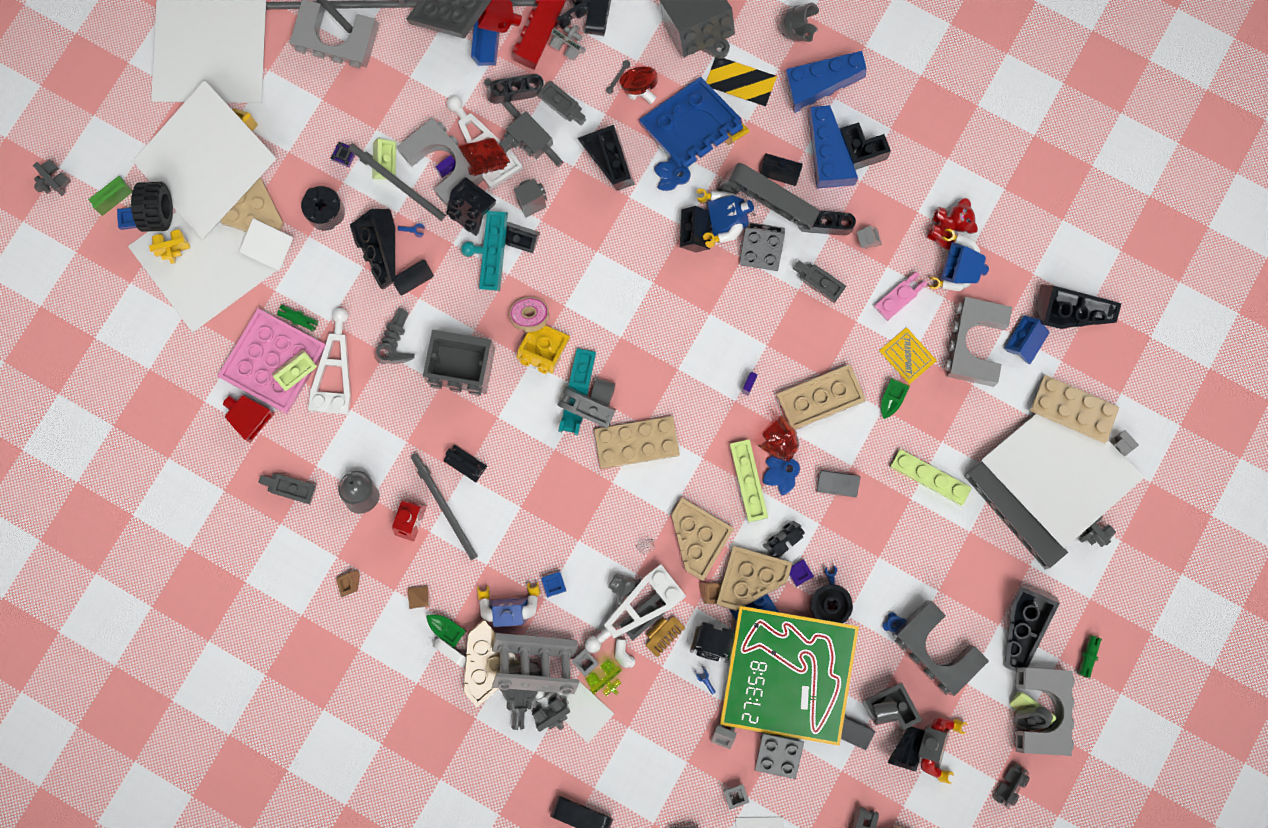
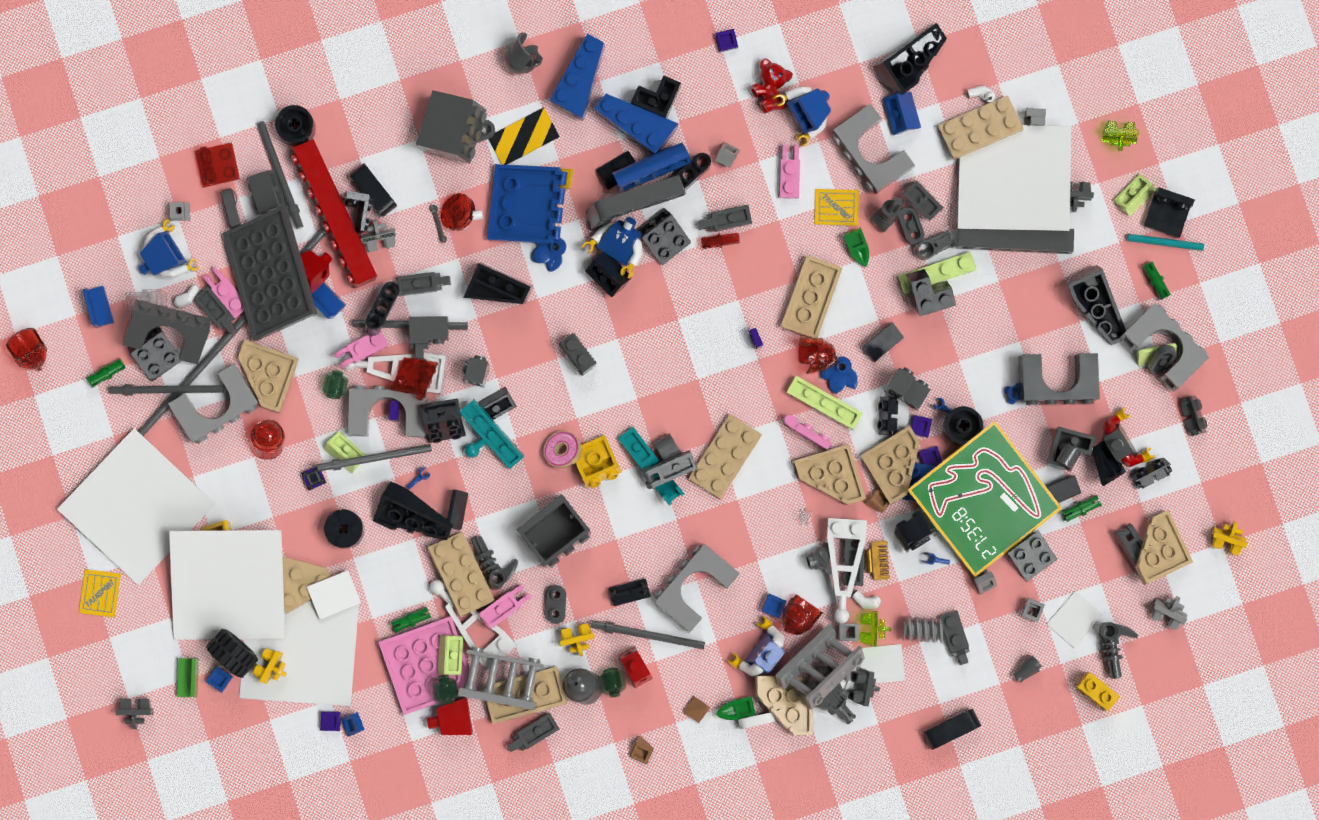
camera: 50 degrees left, 5 degrees up
(121, 80) = (99, 593): none -> yellow sticker
(167, 327) = (330, 721): none -> dark purple tile
(177, 345) = (352, 724): none -> blue plate
(261, 388) = (445, 690): none -> clear green head
(287, 423) = (507, 696): none -> light grey fence
(313, 454) = (546, 693): none -> tan plate
(340, 97) = (267, 445): none -> clear red helmet
(364, 324) = (461, 574): none -> tan plate
(366, 377) = (502, 608): none -> bright pink hinge
(381, 512) = (612, 682): none -> clear green head
(386, 447) = (568, 639): none -> yellow hips
(392, 54) = (268, 373): none -> tan plate
(407, 417) = (556, 604): none -> dark grey plate
(427, 107) = (335, 384): none -> clear green head
(471, 102) = (362, 349): none -> bright pink hinge
(487, 499) = (704, 561): none -> light grey arch
(563, 611) = (799, 616): none -> clear red helmet
(613, 261) = (578, 354): none -> dark grey brick
(640, 720) = (923, 629): none -> light grey piece
(659, 751) = (955, 636): none -> dark grey hinge
(713, 487) = (806, 431): none -> bright pink hinge
(783, 602) = (930, 456): none -> dark purple tile
(799, 290) = (720, 240): none -> clear red axle
(807, 188) = (651, 167): none -> blue brick
(818, 534) = (907, 388): none -> dark grey brick
(853, 761) = (1081, 508): none -> green pin
(905, 486) = (929, 297): none -> brick
(941, 396) = (887, 213): none -> dark grey piece
(944, 796) = (1143, 475): none -> black hinge
(948, 425) = (911, 226): none -> dark grey plate
(953, 456) = (937, 244): none -> dark grey piece
(954, 161) = (726, 40): none -> dark purple tile
(976, 415) = (923, 200): none -> dark grey hinge
(1103, 386) = (983, 92): none -> white arm
(1126, 636) = (1165, 242): none -> teal bar
(1139, 577) = (1135, 194): none -> yellowish green slope
(1153, 616) = (1168, 212): none -> black bracket
(1174, 522) = (1120, 137): none -> clear neon green hips

